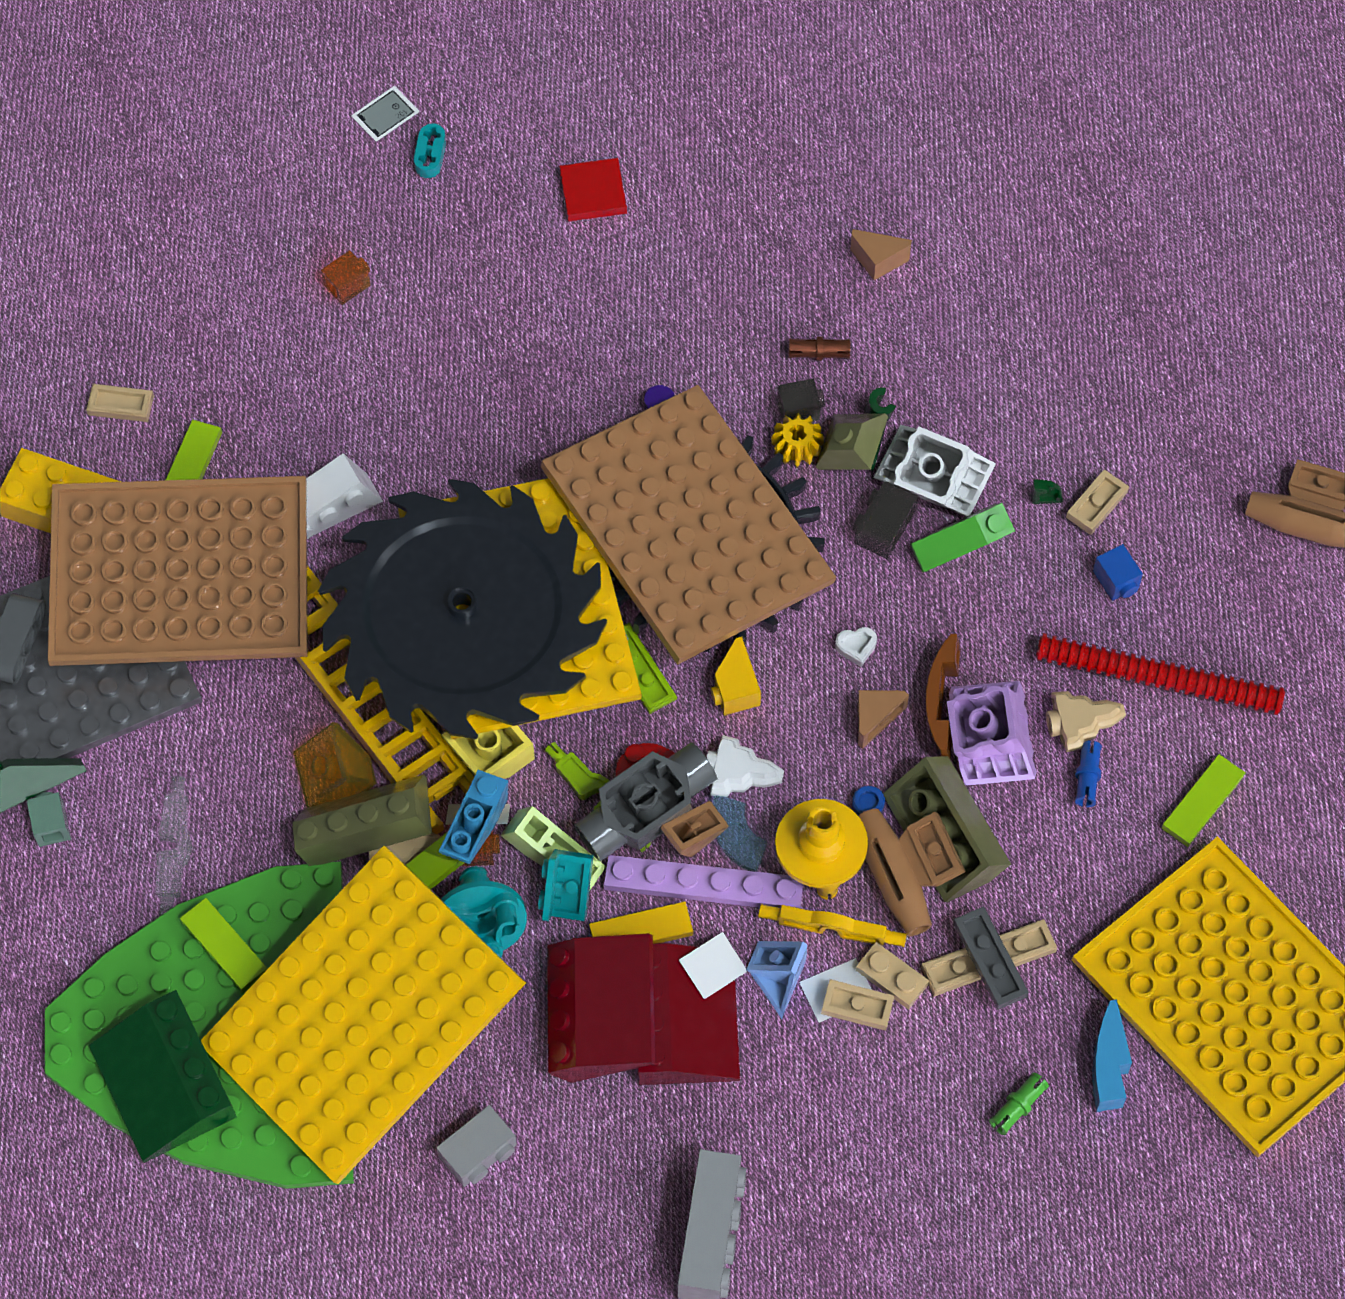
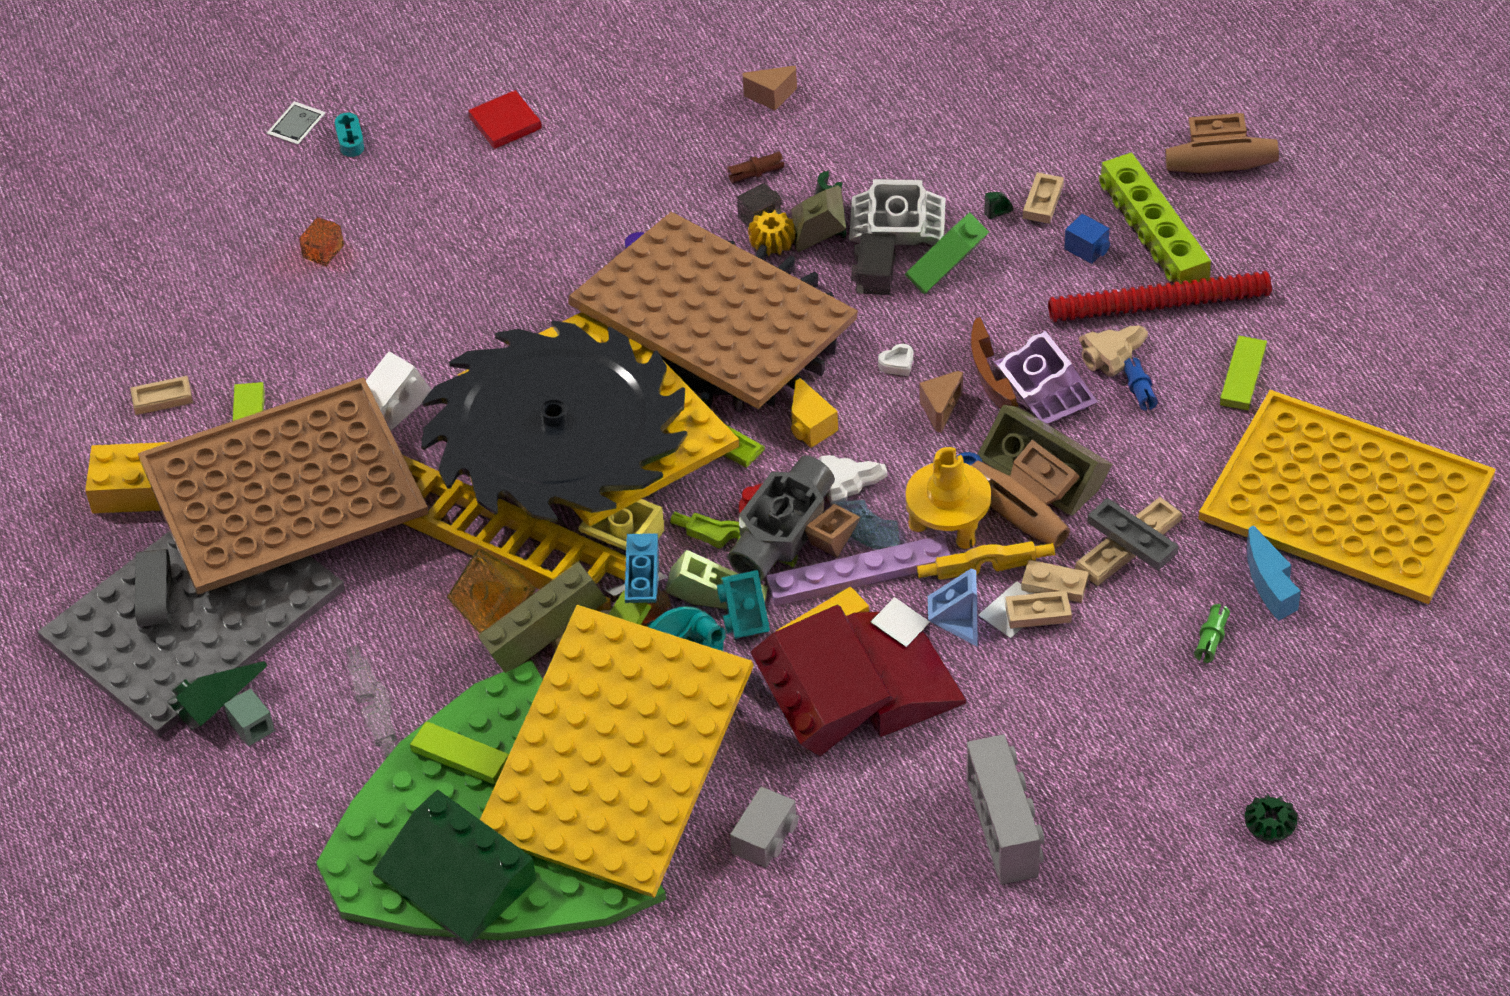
camera: 20 degrees left, 15 degrees down
(1198, 504) = (1154, 220): none -> lime brick

